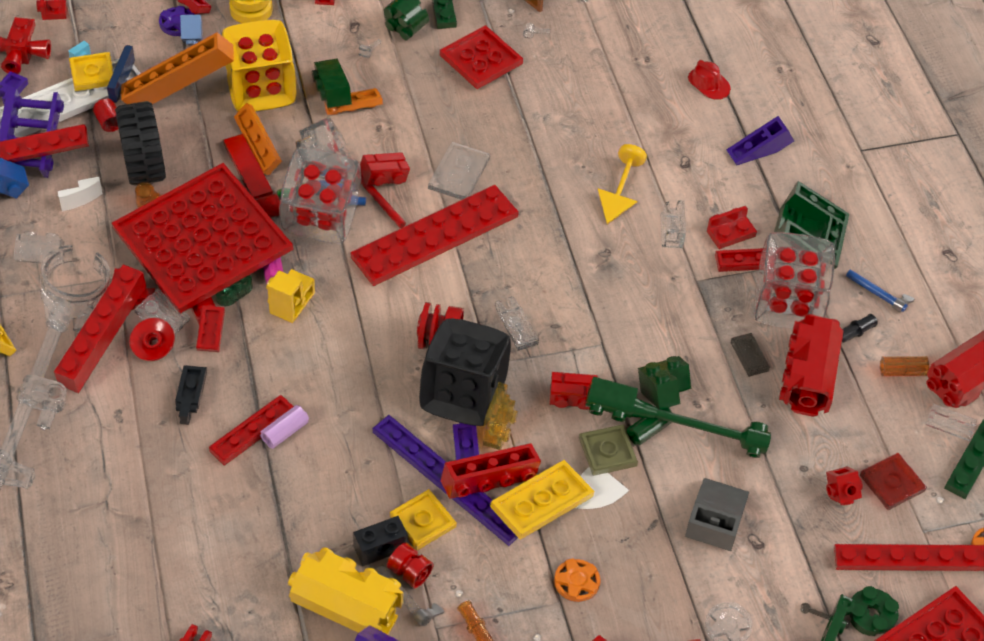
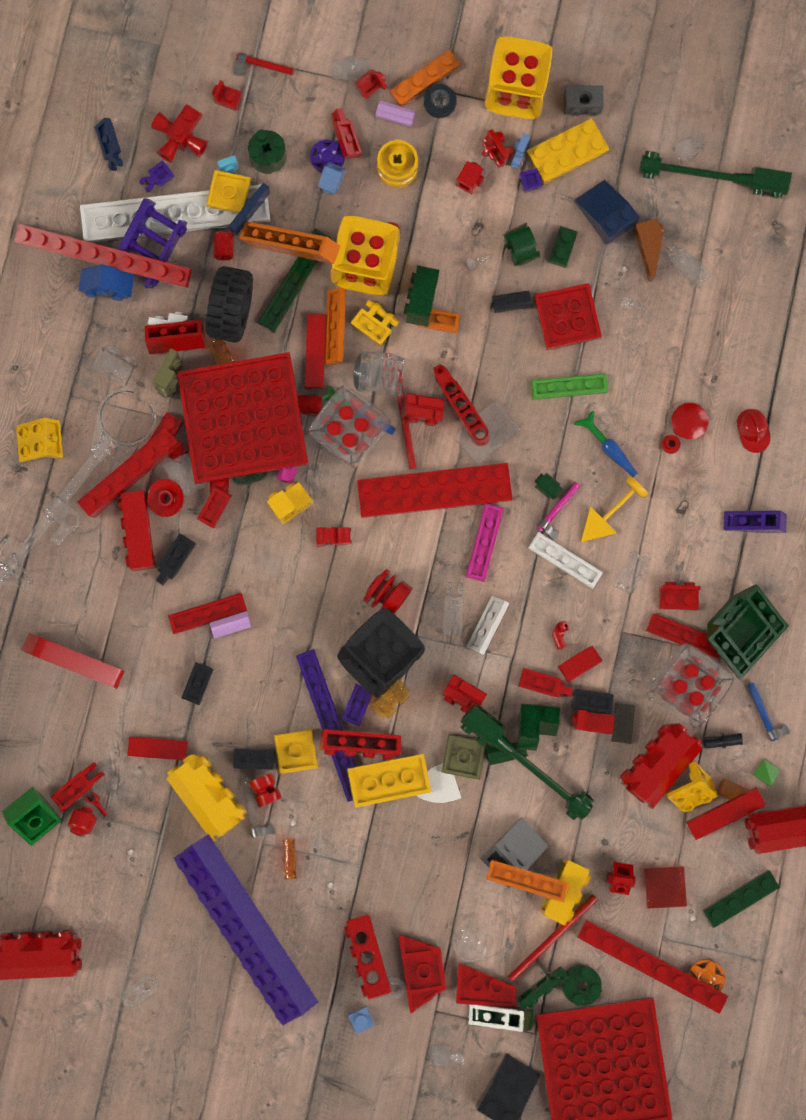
camera: 25 degrees right, 30 degrees up
(93, 199) = (175, 336): none -> red brick
(103, 230) = (166, 380): none -> olive plate
(115, 30) = (263, 142): none -> dark green brick
(116, 518) = (72, 660): none -> red beam
(135, 381) = (137, 531): none -> red brick
(195, 123) = (288, 291): none -> dark green tile
(259, 581) = (157, 748): none -> red tile
(276, 497) = (197, 683): none -> black plate
(290, 122) = (370, 326): none -> yellow plate
(359, 303) = (333, 535): none -> red leg
(421, 63) = (511, 301): none -> black axle
(423, 153) = (445, 380): none -> red piece
(512, 258) = (484, 542): none -> dark pink tile
(516, 109) = (569, 386): none -> bright green tile
(546, 187) = (548, 486): none -> dark green brick
(559, 321) = (487, 625): none -> white plate
(562, 220) = (544, 524): none -> dark pink piece
(577, 580) = (382, 855): orange wheel -> none
(584, 137) = (609, 446): none -> blue piece
(601, 242) = (565, 560): none -> white tile
(635, 305) = (558, 633): none -> red arm
(641, 117) = (670, 450): none -> red plate
(646, 94) = (689, 421): none -> red dish
(649, 349) = (543, 684): none -> red hinge
(673, 318) = (580, 663): none -> red slope
(707, 345) = (593, 701): none -> black plate
(718, 364) = (593, 722): none -> red bracket
(751, 511) = (527, 881): none -> orange plate
(795, 519) = (577, 877): none -> yellow brick
(811, 580) = (551, 939): none -> red piece
(861, 374) = (695, 793): none -> yellow bracket
(905, 383) = (726, 813): none -> red tile
(917, 340) = (766, 773): none -> bright green slope

